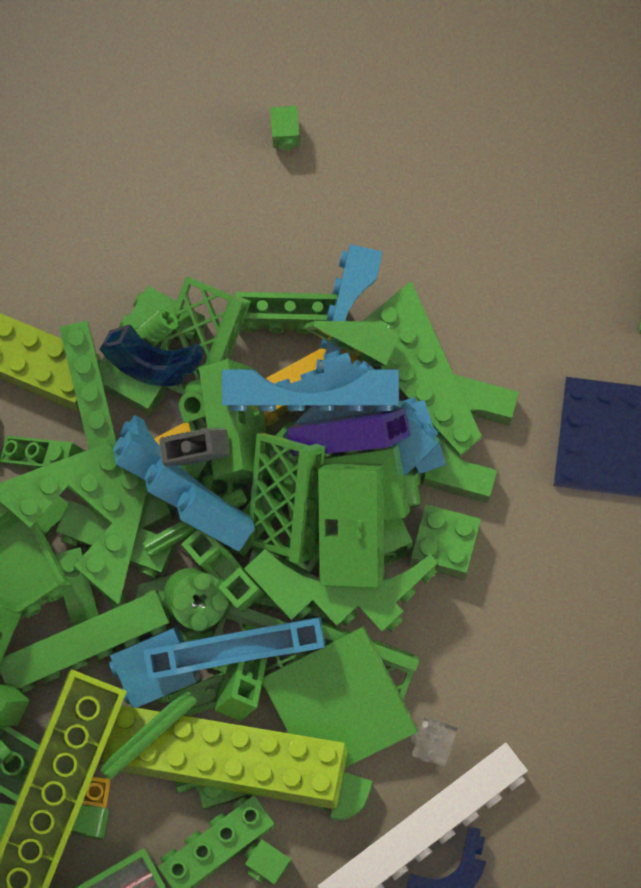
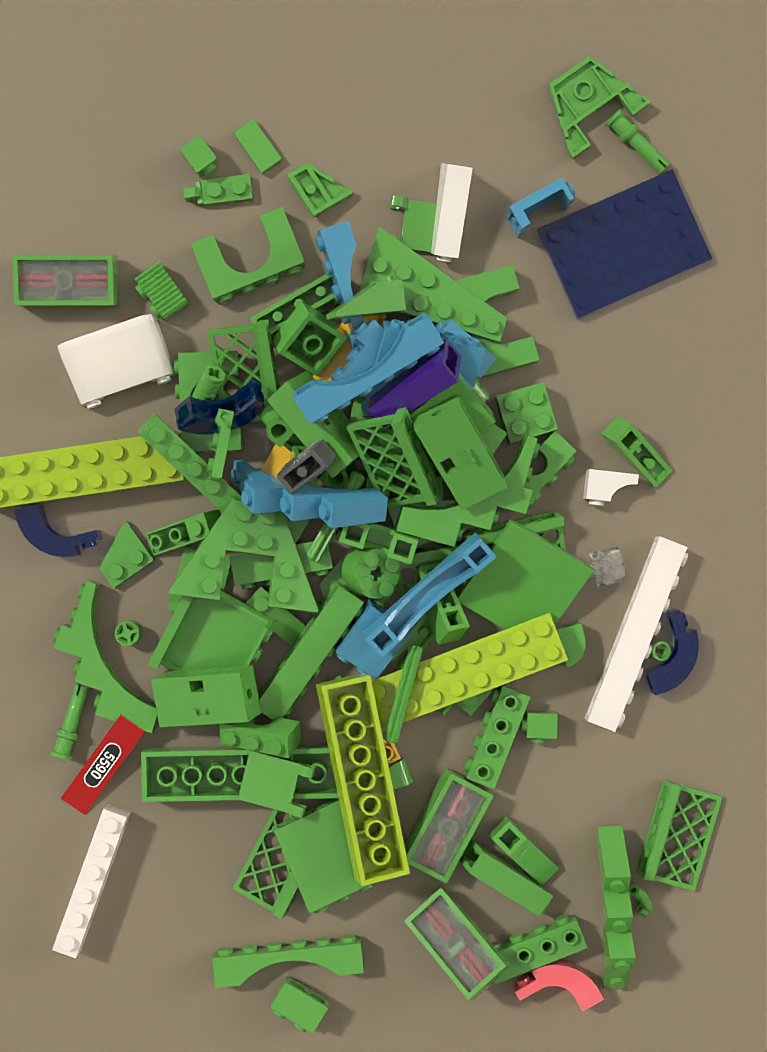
camera: 35 degrees left, 15 degrees up
(88, 257) = (116, 359): none -> white windscreen
(89, 163) = (65, 280): none -> clear brick
(129, 383) = (220, 442): none -> bright green hinge
(170, 224) = (161, 291): none -> bright green brick
(278, 341) = (309, 338): none -> bright green brick
(285, 169) = (220, 190): none -> bright green hinge
(302, 262) = (283, 259): none -> bright green arch
(345, 151) = (257, 146): none -> bright green tile
(375, 219) = (317, 189): none -> bright green wing
(443, 861) = (663, 646): none -> bright green hinge
(452, 602) = (556, 454): none -> bright green arch
(459, 312) = (417, 223): none -> bright green flag
(482, 658) = (603, 484): none -> white arch
(489, 308) = (450, 211): none -> white slope
(535, 647) = (636, 451): none -> bright green slope
(579, 347) = (519, 211): none -> dark azure panel

